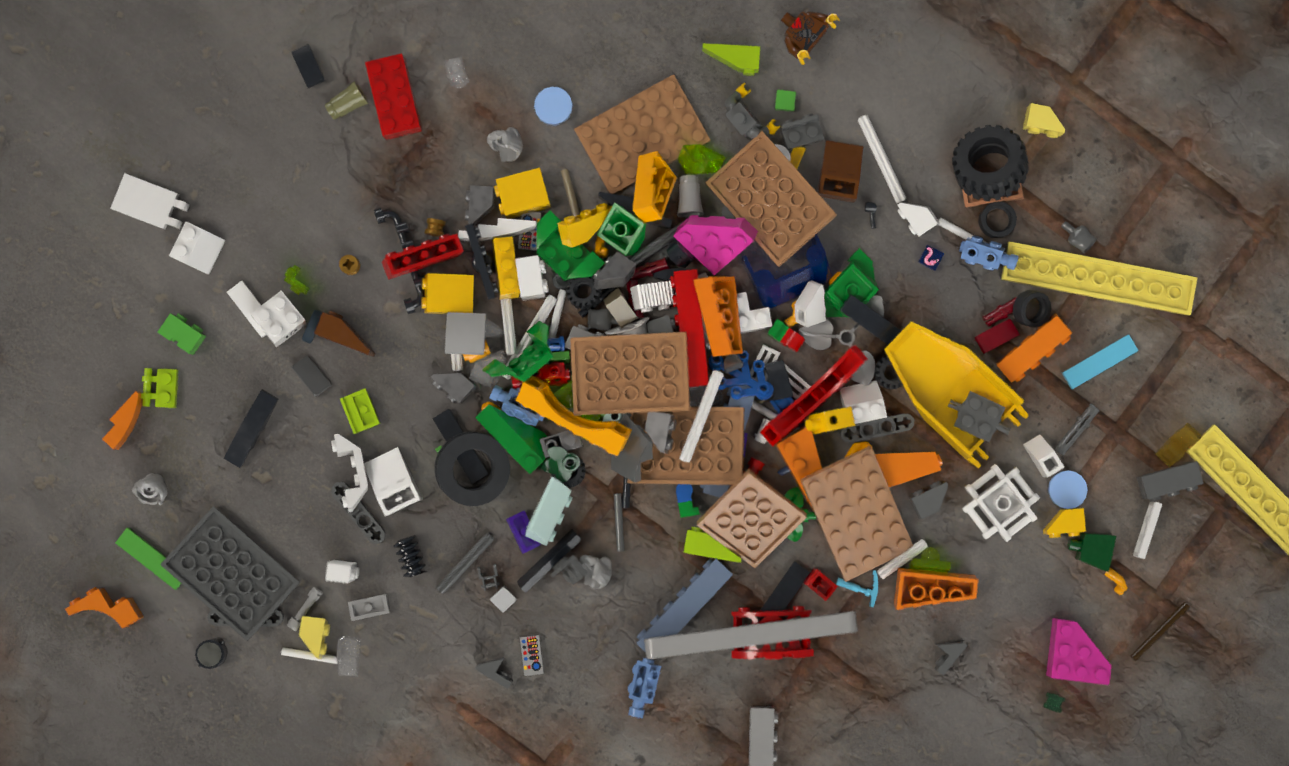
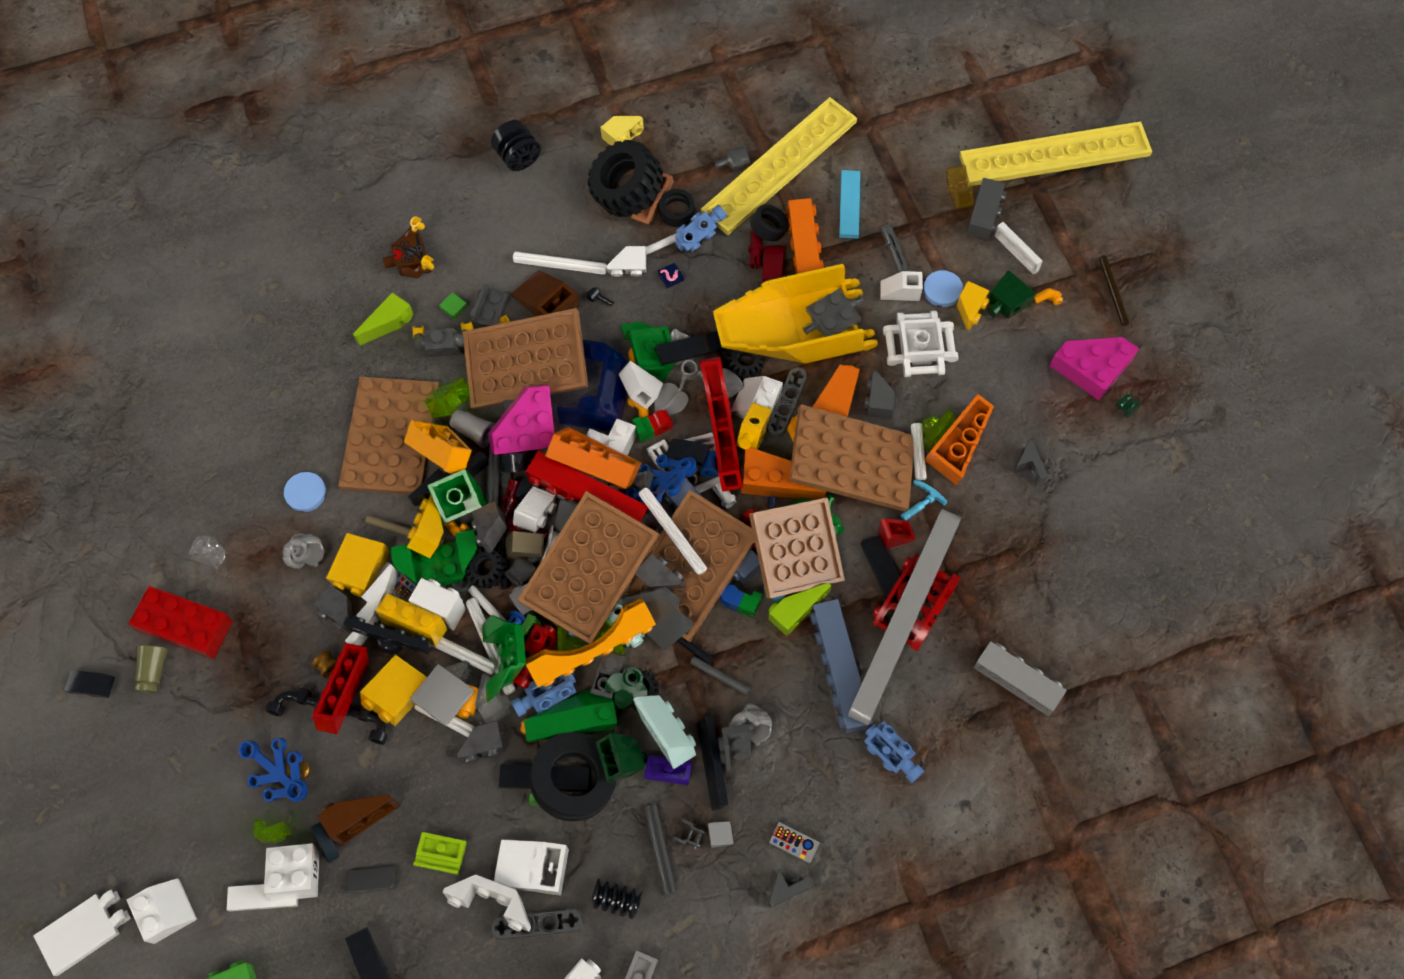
camera: 55 degrees left, 20 degrees down
(337, 254) = (277, 771): none -> blue plant
(506, 494) = (620, 756): none -> dark green torso
(964, 44) = (515, 145): none -> black wheel

